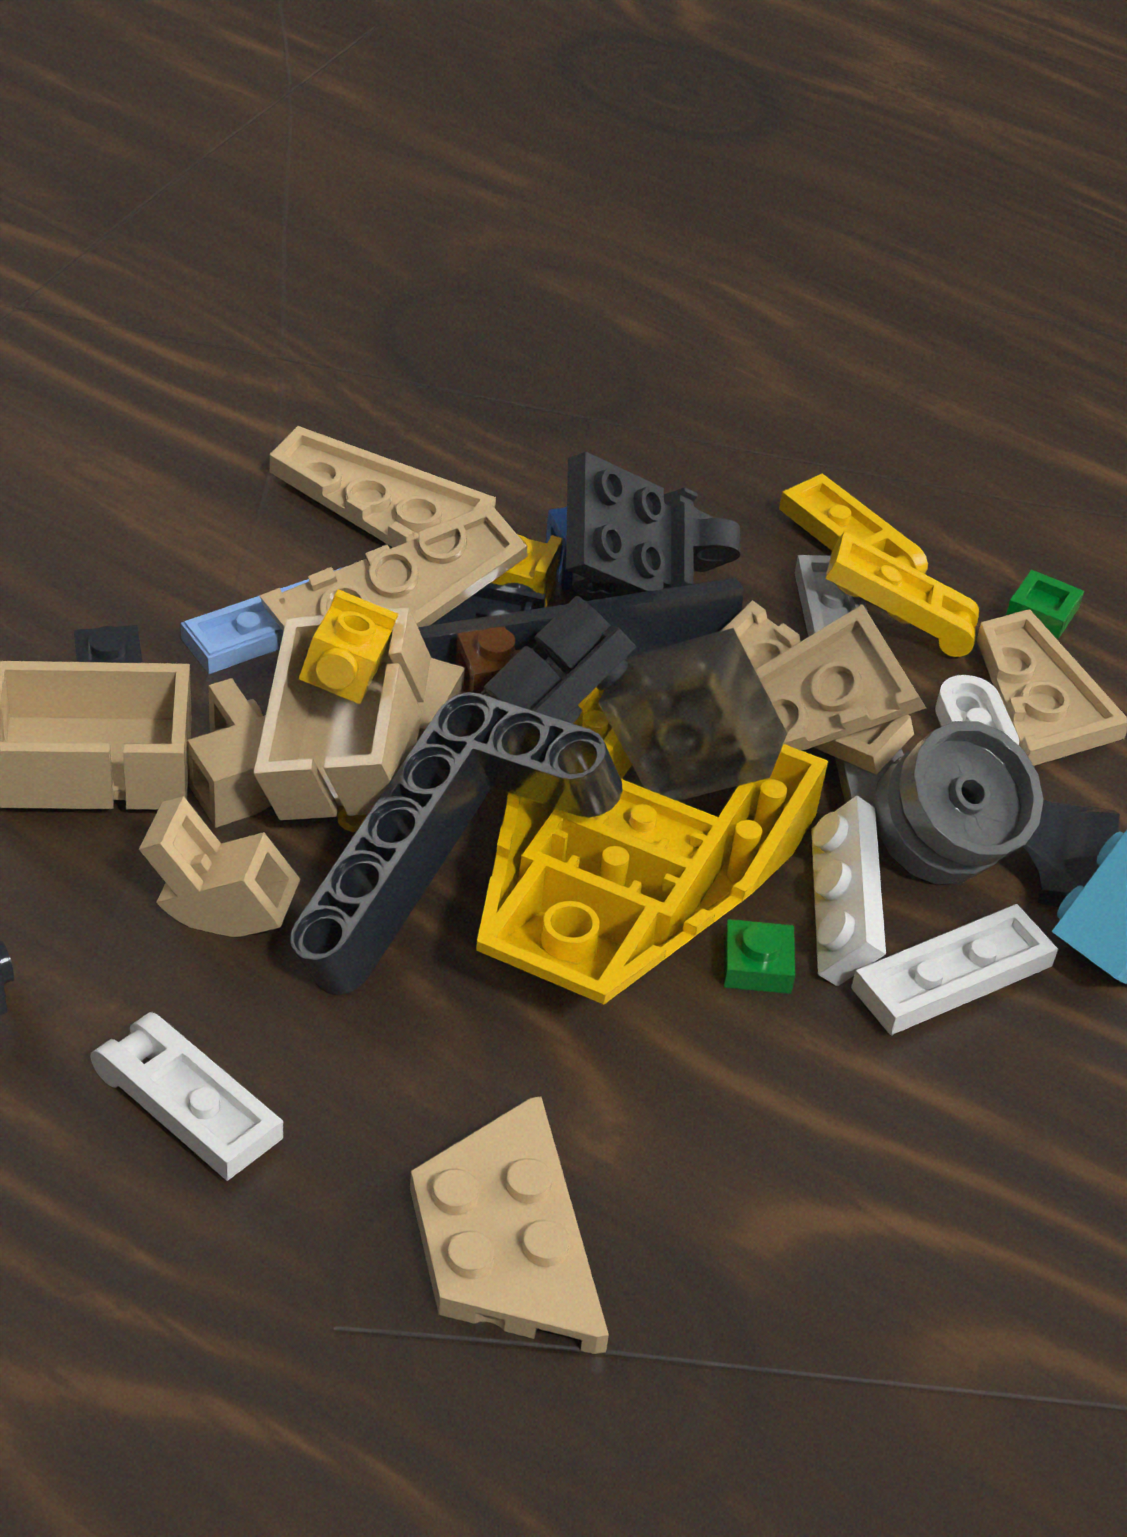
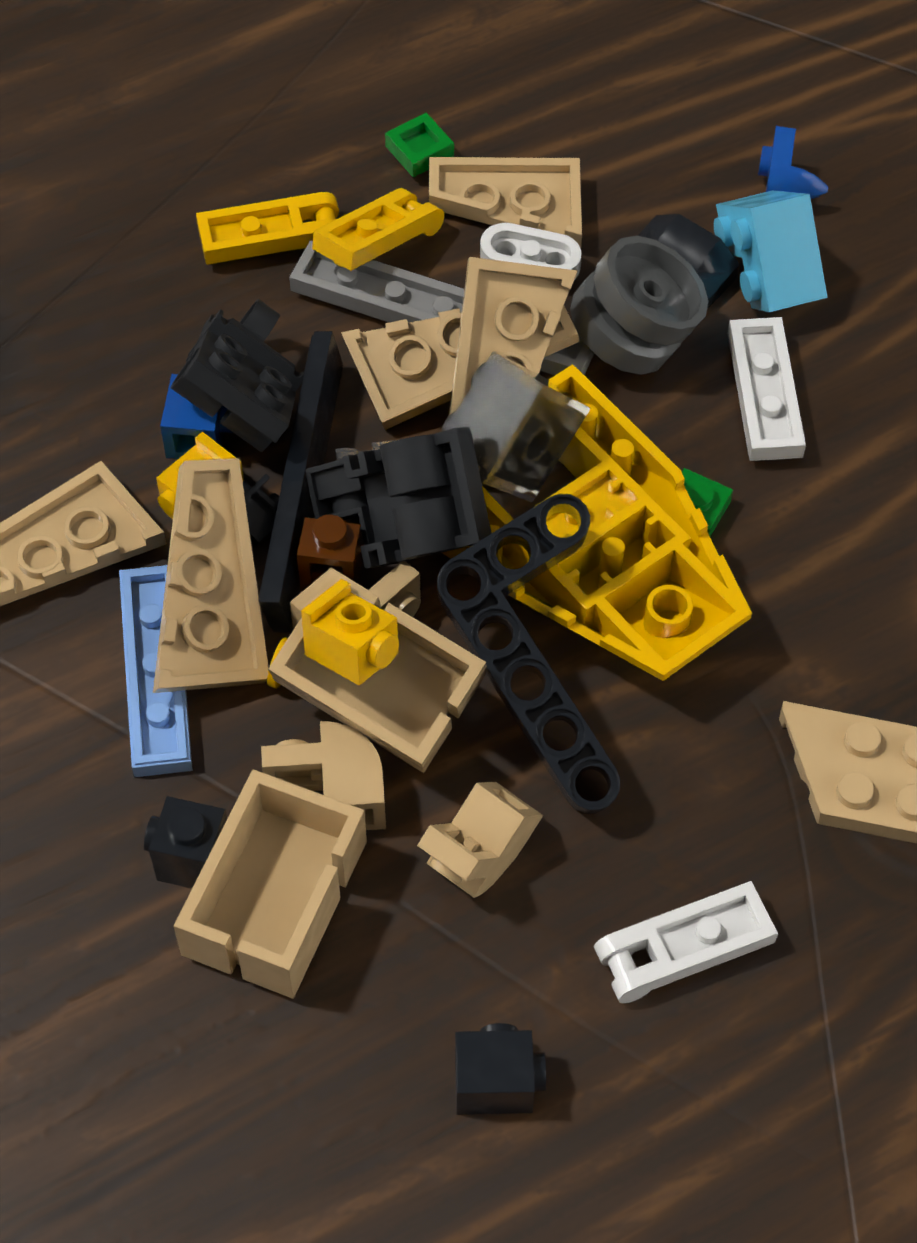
camera: 60 degrees left, 15 degrees up
(847, 891) = (675, 417): white plate -> none

